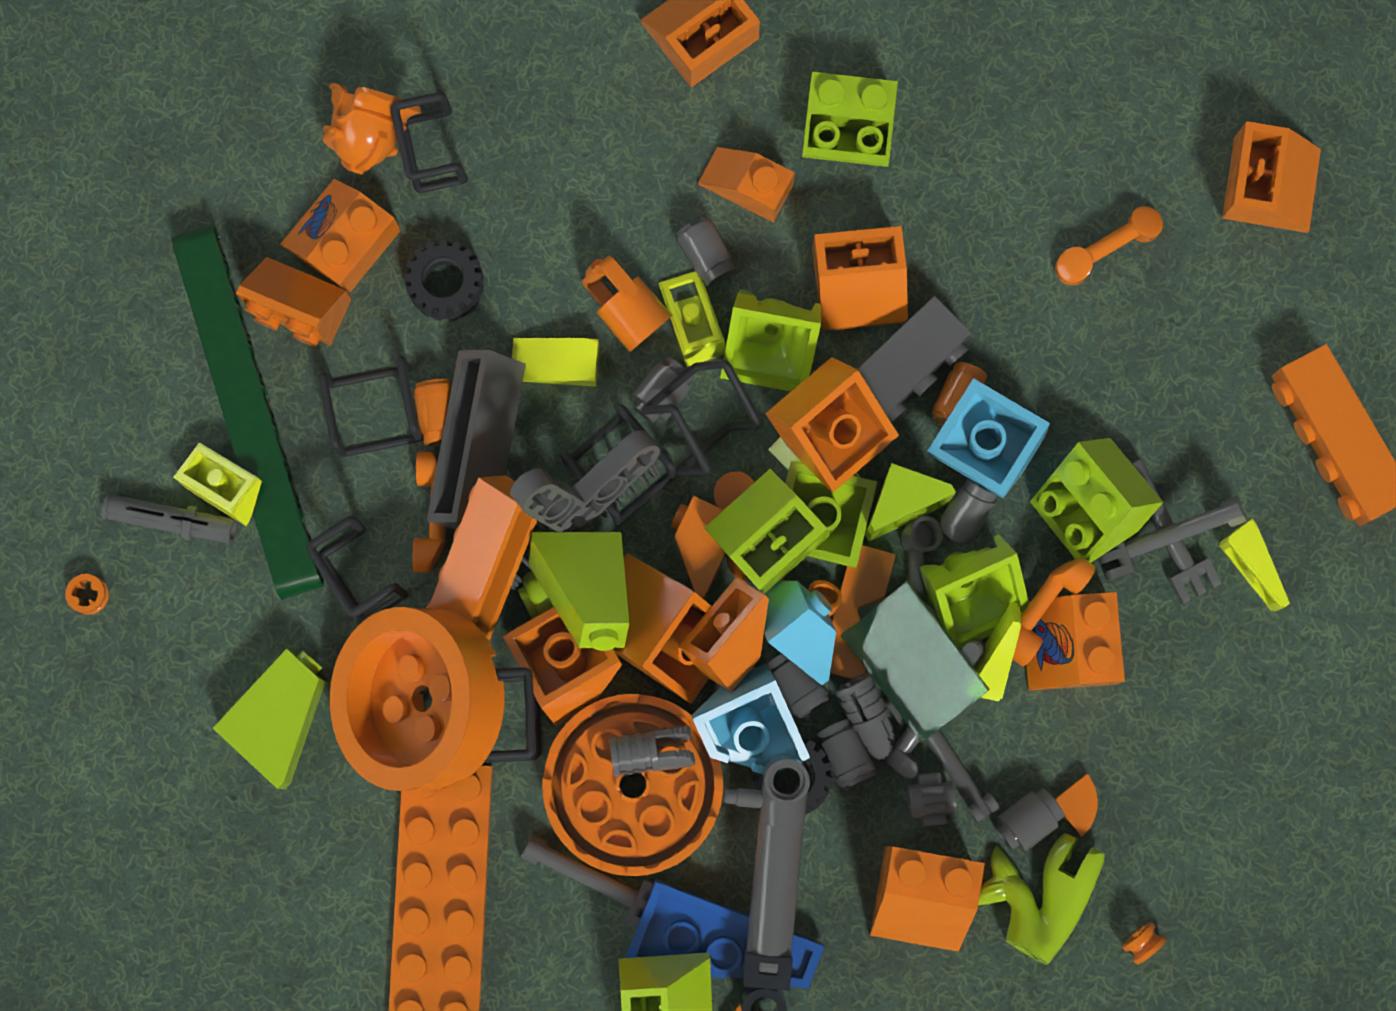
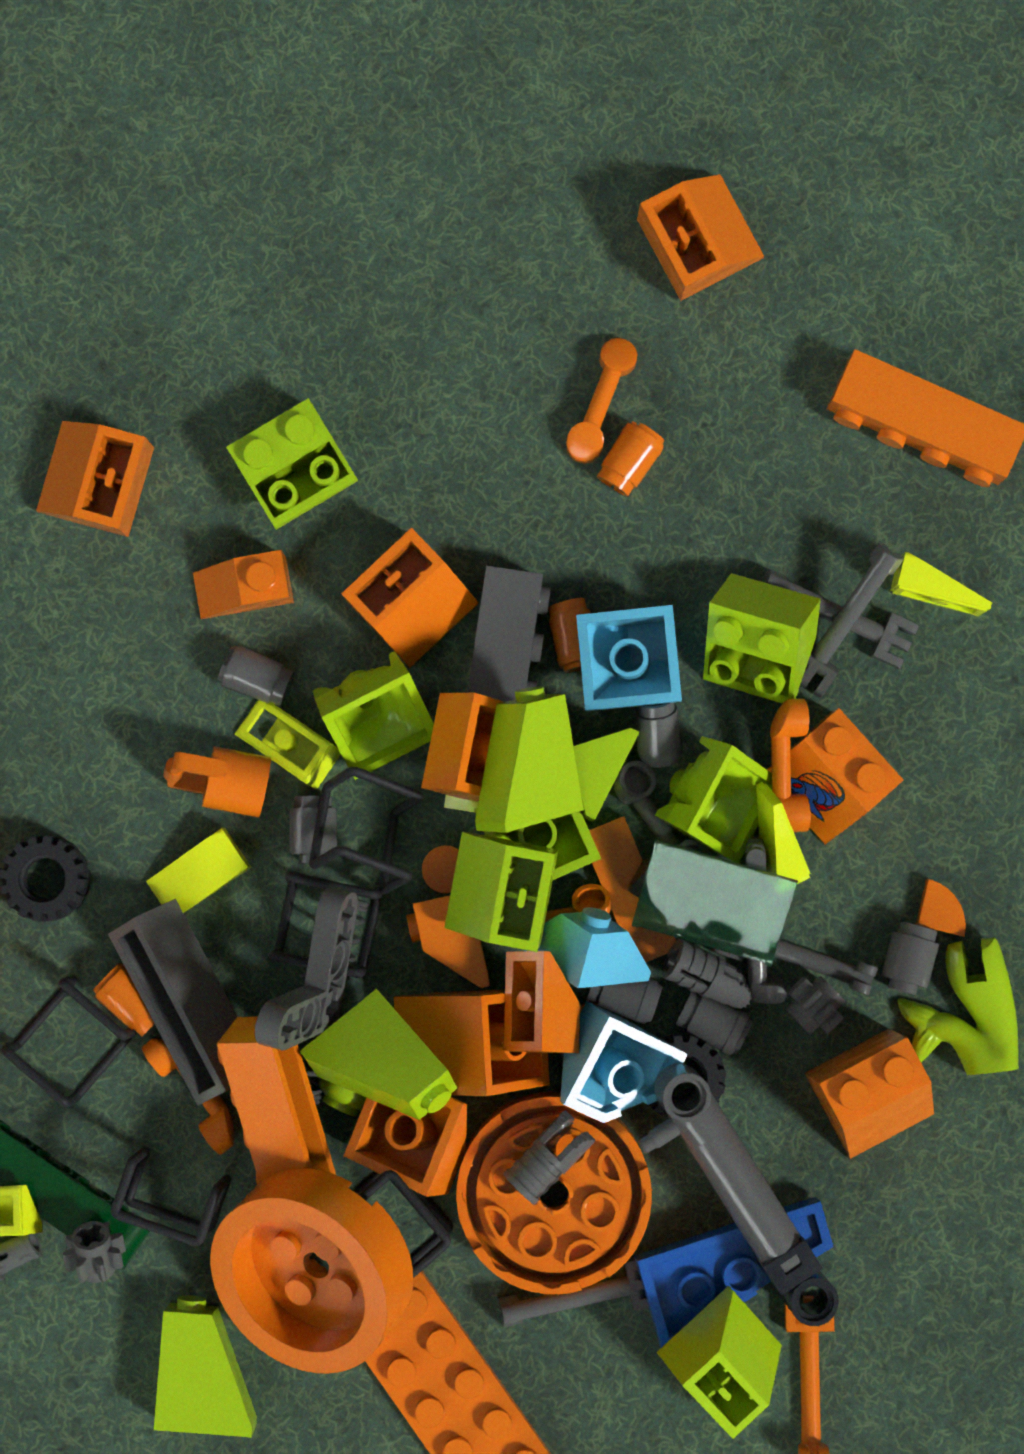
camera: 40 degrees left, 5 degrees up
(272, 564) = (94, 1252): none -> dark grey gear
(858, 452) = (529, 764): none -> lime slope
(1099, 301) = (630, 457): none -> orange piece

